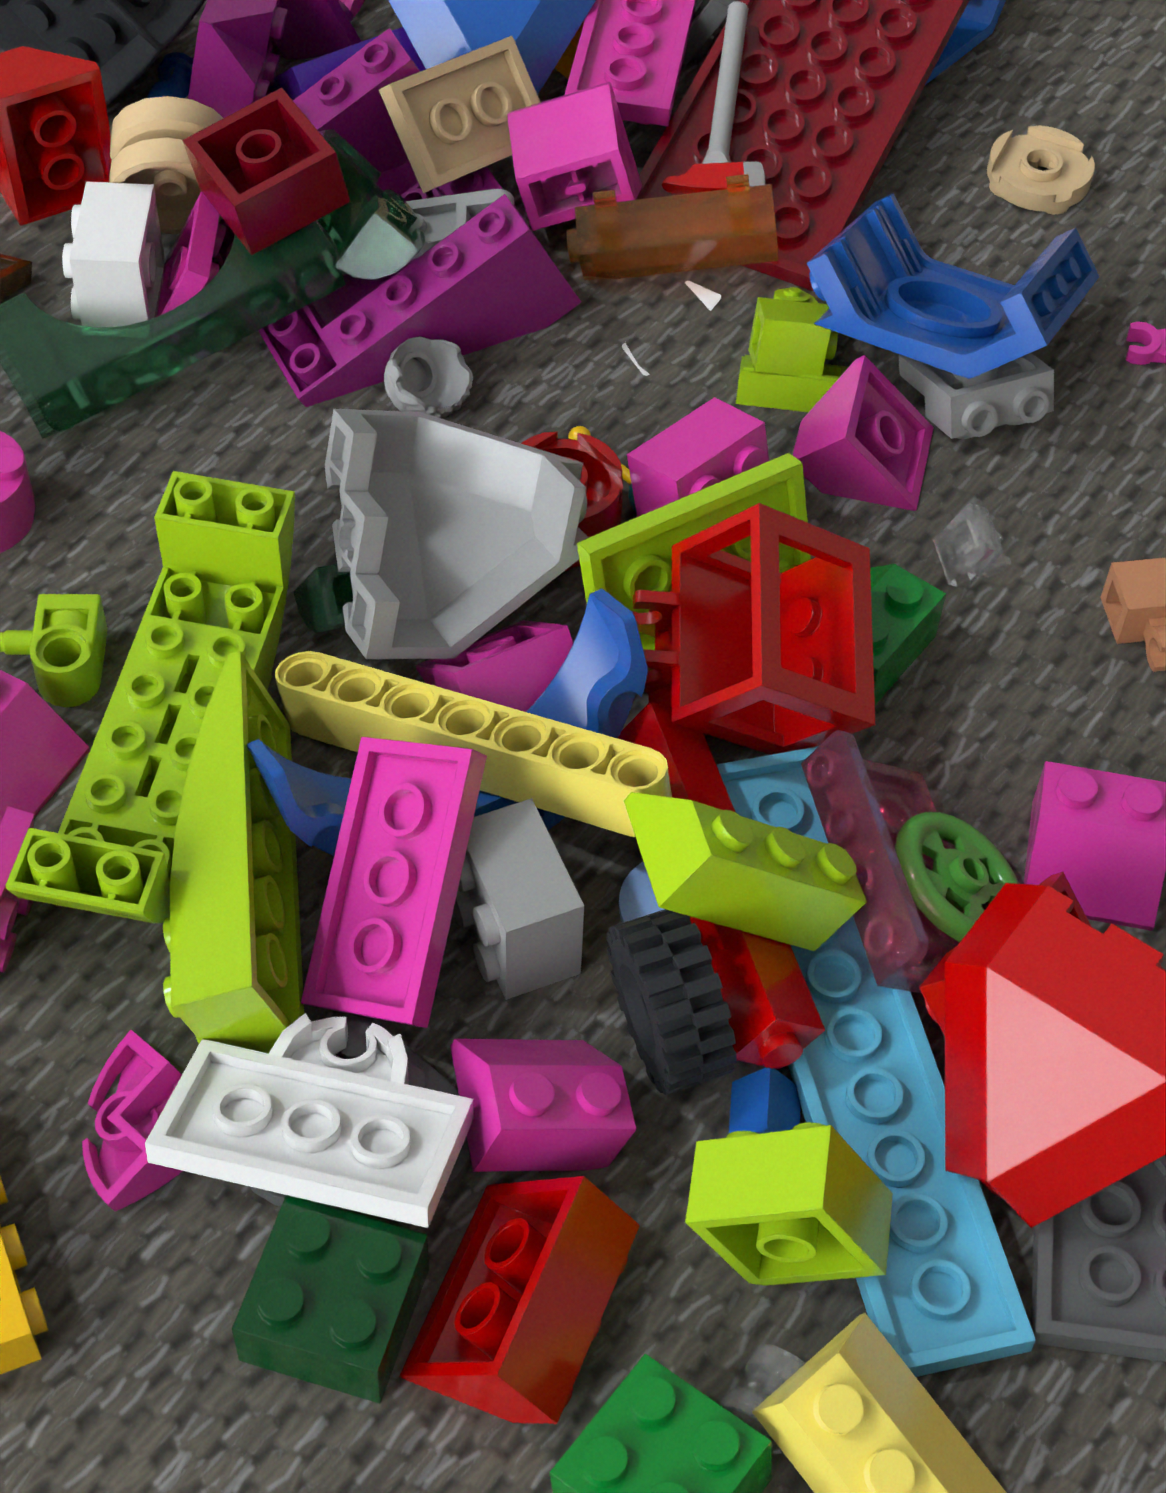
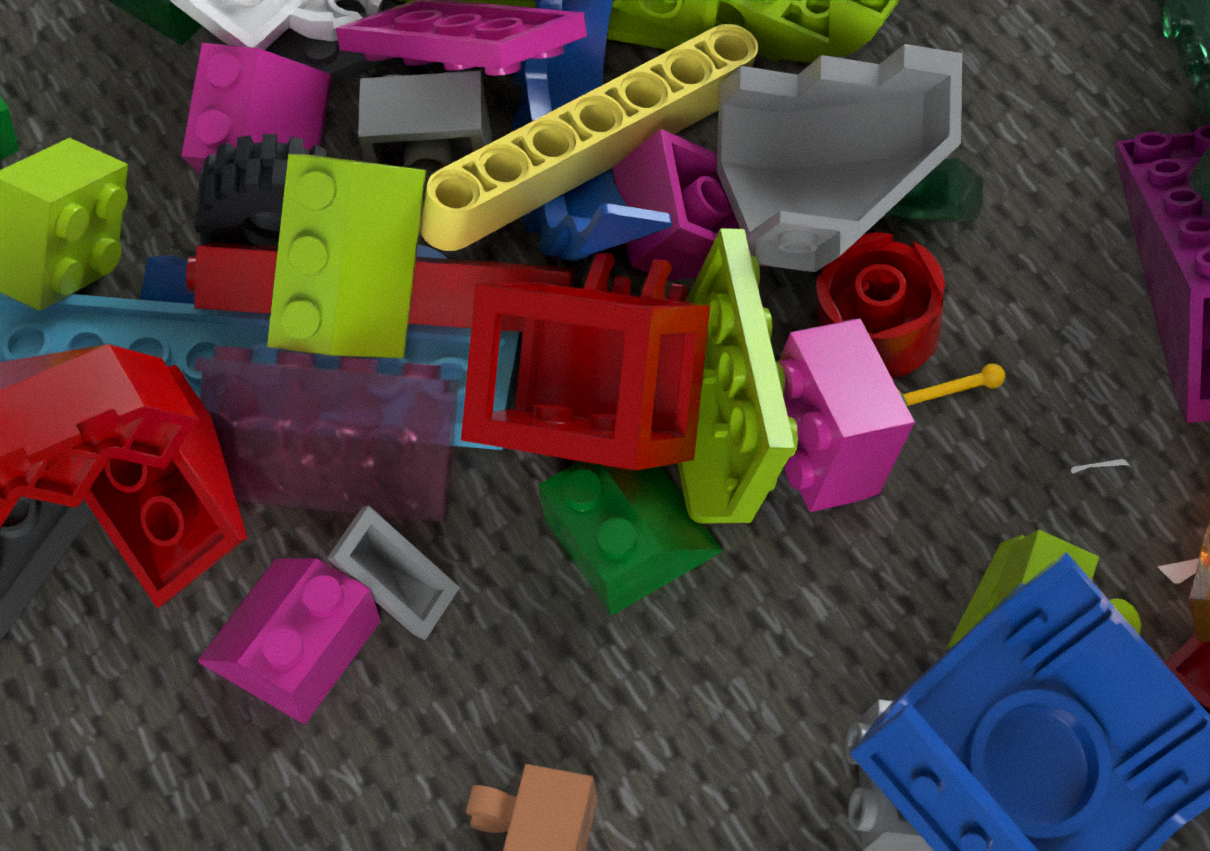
camera: 120 degrees right, 5 degrees up
(427, 377) = (1097, 242): light grey hair -> none
(523, 1298) = (105, 77): red slope -> none
(865, 440) = (871, 623): dark pink slope -> none
(958, 875) = (288, 436): bright green plate -> none
(970, 547) = (695, 674): clear tile -> none
(999, 785) = (395, 572): none -> light grey slope

